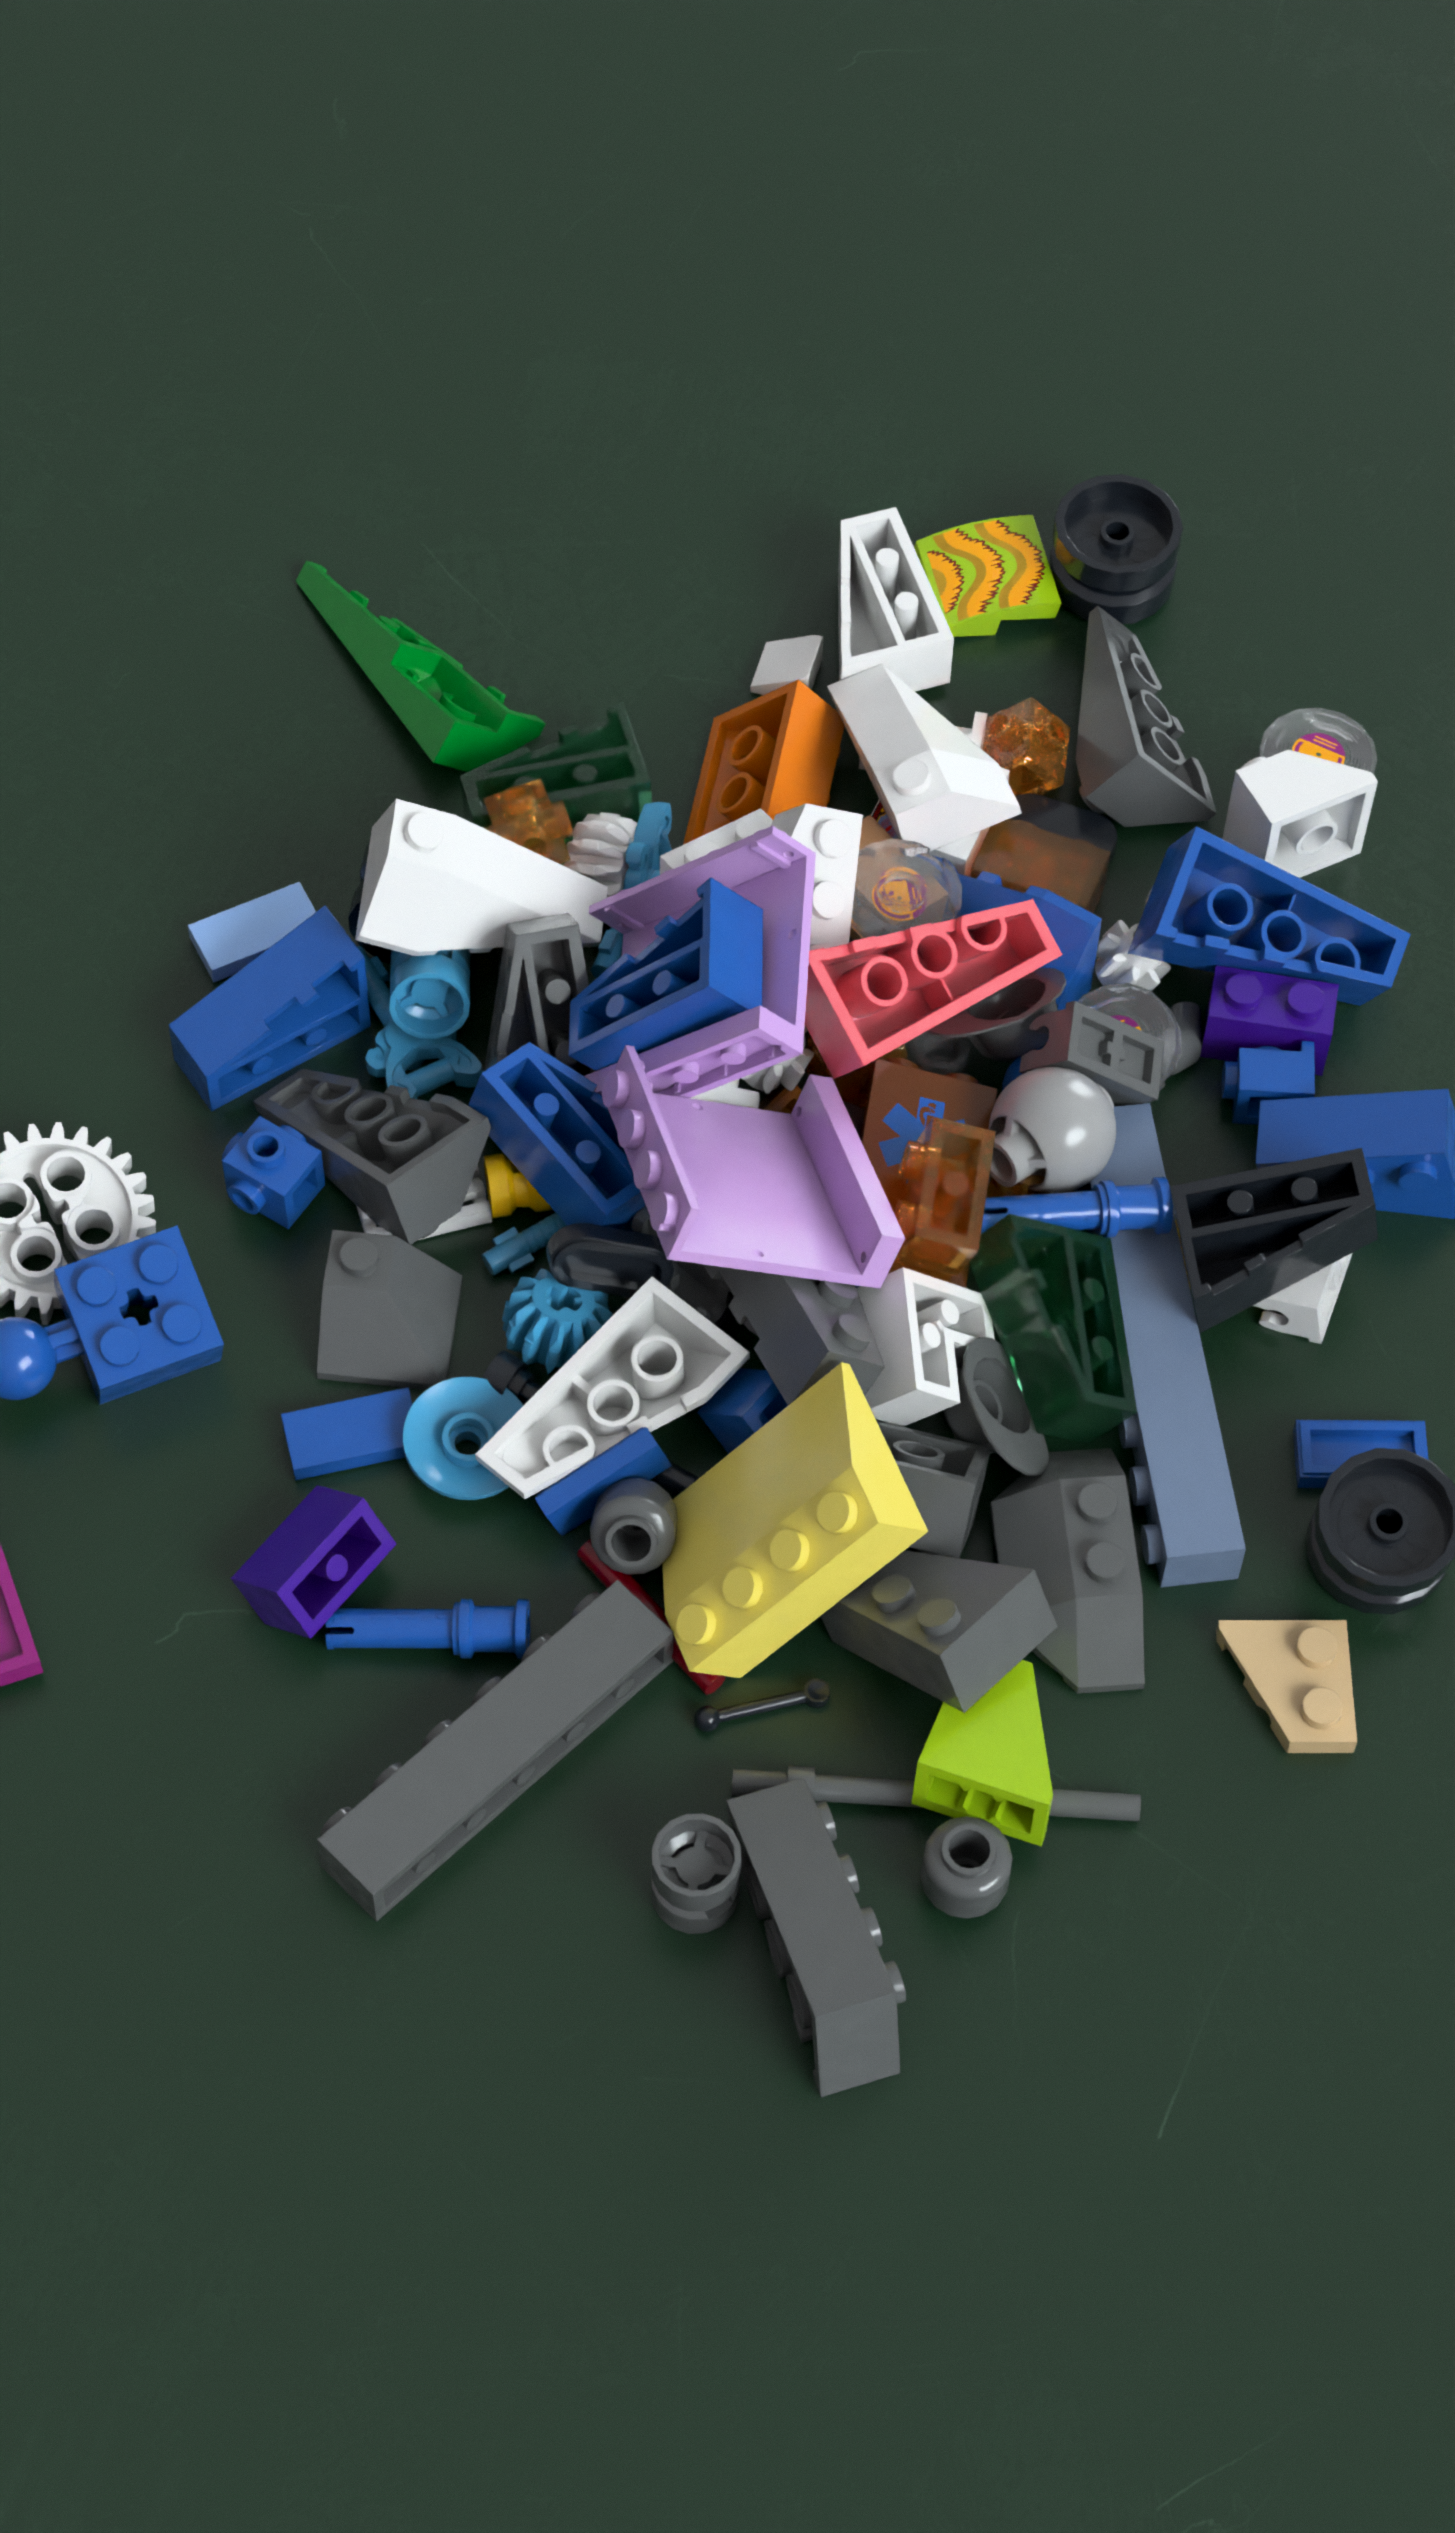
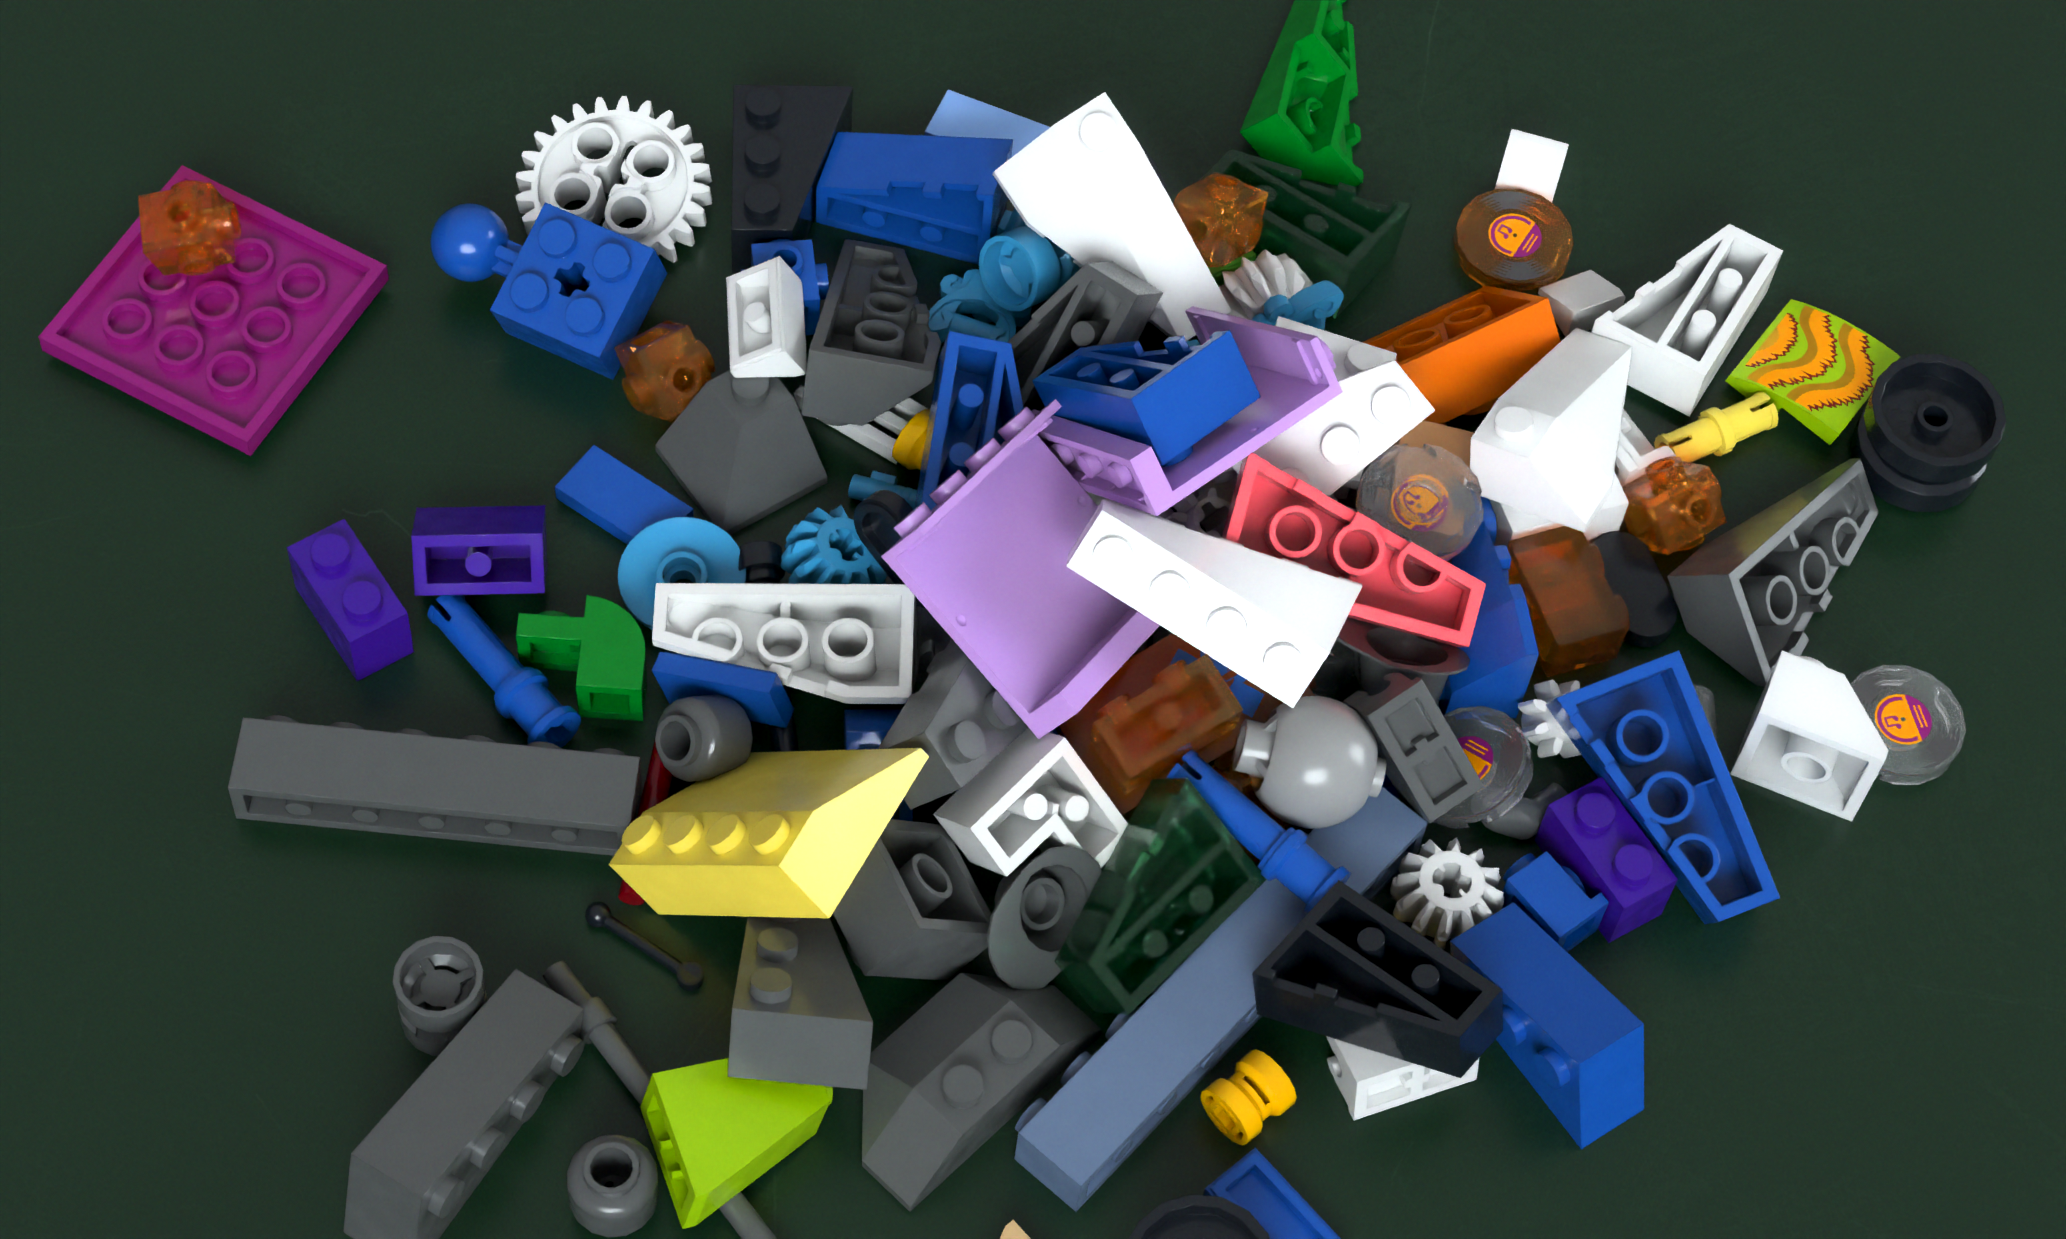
camera: 45 degrees right, 0 degrees up
(149, 1094) = (778, 158): none -> black wedge
(266, 1689) = (350, 599): none -> dark purple brick
(270, 1309) = (664, 369): none -> clear orange brick
(313, 1202) = (766, 321): none -> white slope
(485, 1540) = (602, 649): none -> green brick
(648, 609) = (1532, 164): none -> white slope
(694, 669) = (1513, 240): none -> clear orange tile
(905, 1067) = (1231, 602): none -> white wedge
(981, 672) = (1719, 429): none -> light yellow pin
(1206, 1137) = (1433, 872): none -> white gear
(1256, 1392) = (1248, 1097): none -> yellow wheel

